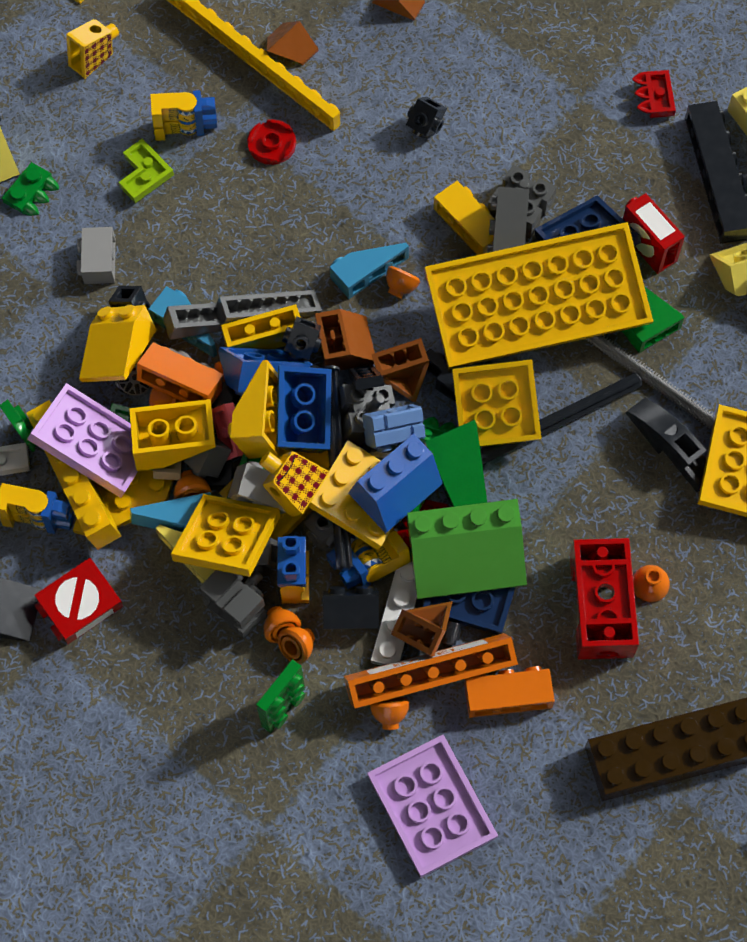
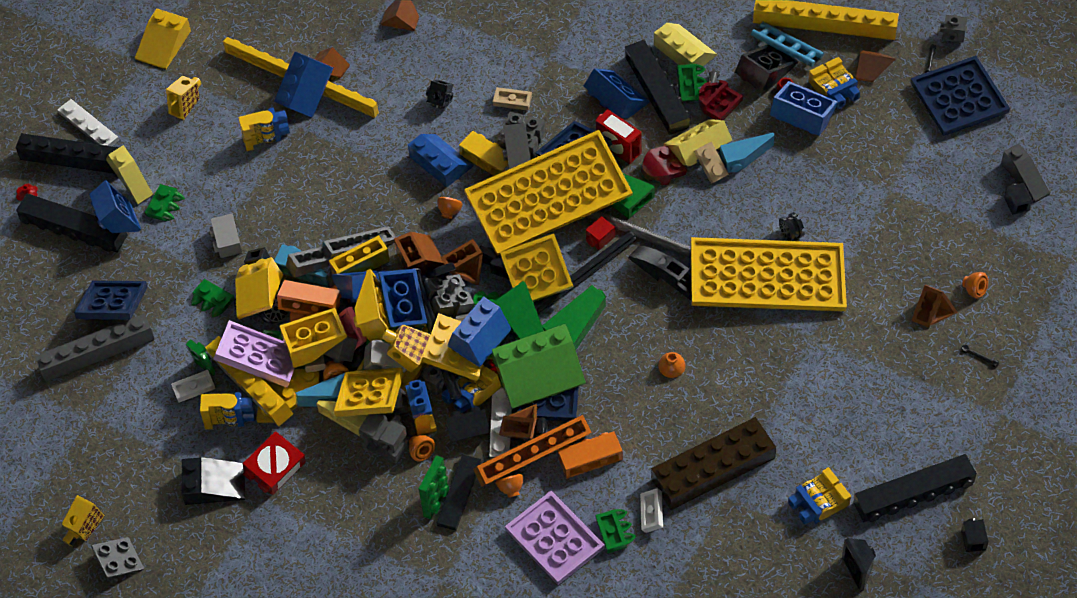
camera: 10 degrees left, 10 degrees down
(59, 338) = (212, 297): none -> green plate
(149, 173) = (248, 172): lime plate -> none
(249, 65) = (303, 84): none -> blue slope
(271, 142) = (332, 134): red tile -> none
(296, 643) = (430, 451): orange brick -> none
(302, 330) = (389, 249): black brick -> none
(317, 704) = (458, 493): none -> black tile
(364, 267) = (420, 203): dark azure slope -> none
(392, 426) = (466, 298): medium blue brick -> none
(404, 208) = (438, 158): none -> blue slope
(515, 815) = (613, 530): none -> green plate
(521, 145) = (512, 98): none -> tan plate
(537, 482) = (579, 314): none -> green slope
(575, 798) = (651, 510): none -> white plate
(595, 367) = (600, 233): none -> red brick
(605, 626) = (645, 394): red plate -> none
(656, 93) = (600, 43): red plate -> none
(660, 168) = (614, 93): none -> blue slope
(701, 287) = (662, 165): none -> dark red slope

